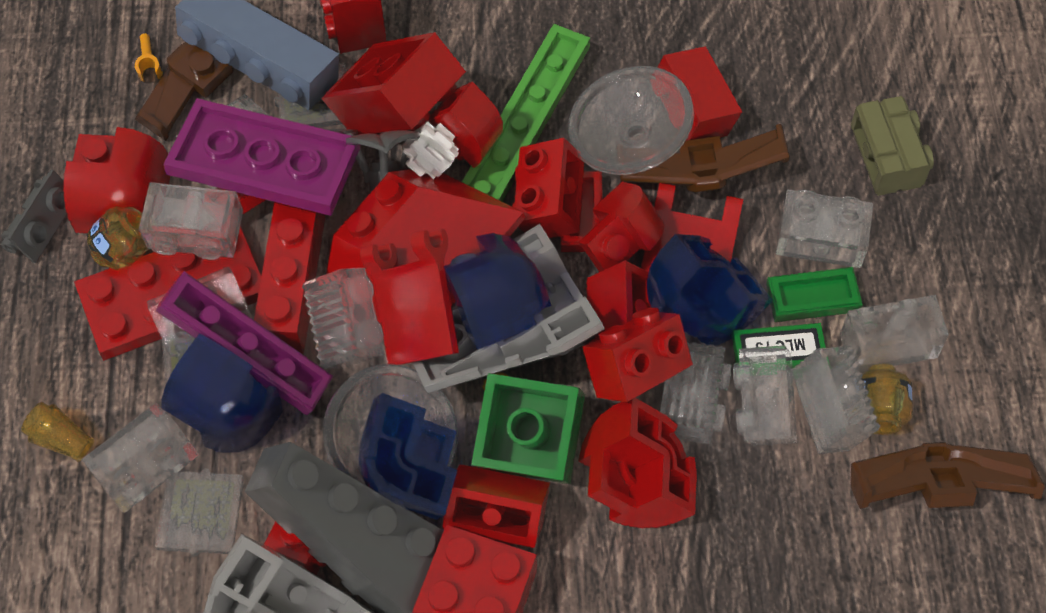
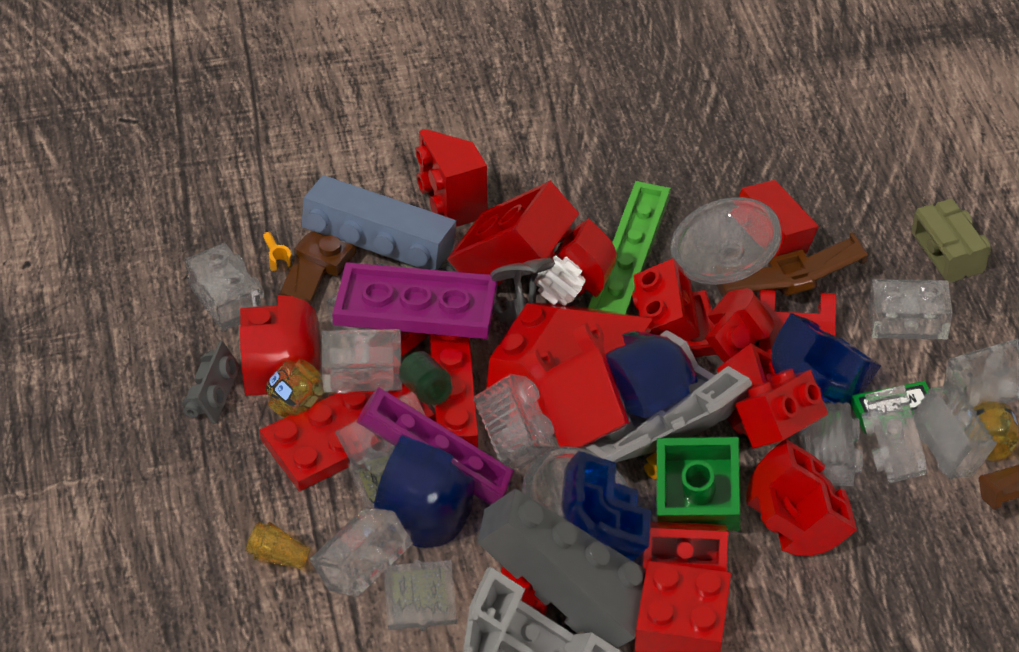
camera: 10 degrees left, 15 degrees down
(77, 95) = (223, 284): none -> clear brick
(250, 257) = (425, 378): none -> clear green brick
(813, 294) = (912, 362): green tile -> none

